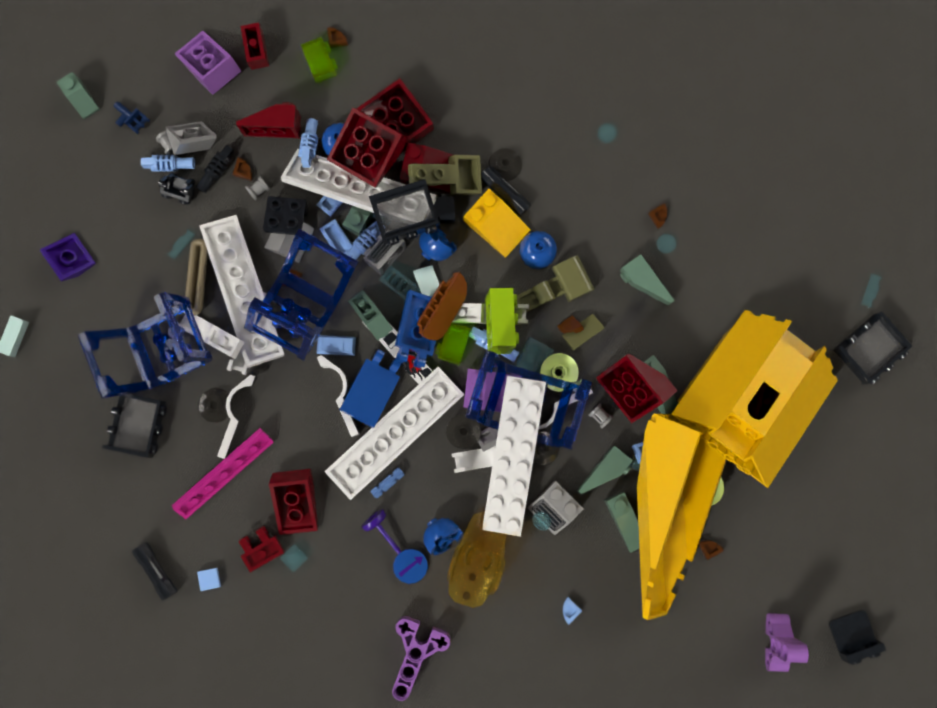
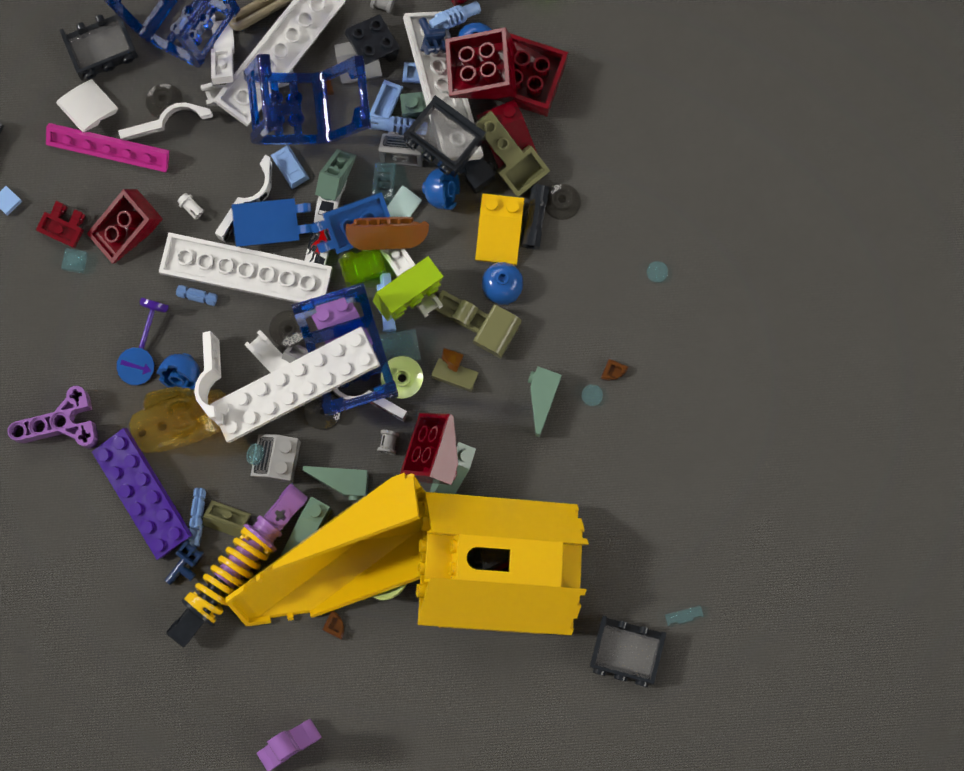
camera: 60 degrees right, 5 degrees down
(178, 467) = (87, 105): none -> white slope
(314, 440) = (190, 205): none -> white pin
(321, 169) = (433, 38): none -> dark blue arm
(460, 512) = (209, 376): none -> white piece
(514, 626) = (142, 493): none -> dark purple plate
(554, 592) = (197, 508): none -> medium blue axle
(575, 575) = (225, 519): none -> olive slope
(585, 624) = (186, 558): none -> dark blue arm
(621, 592) = (255, 545): none -> piece

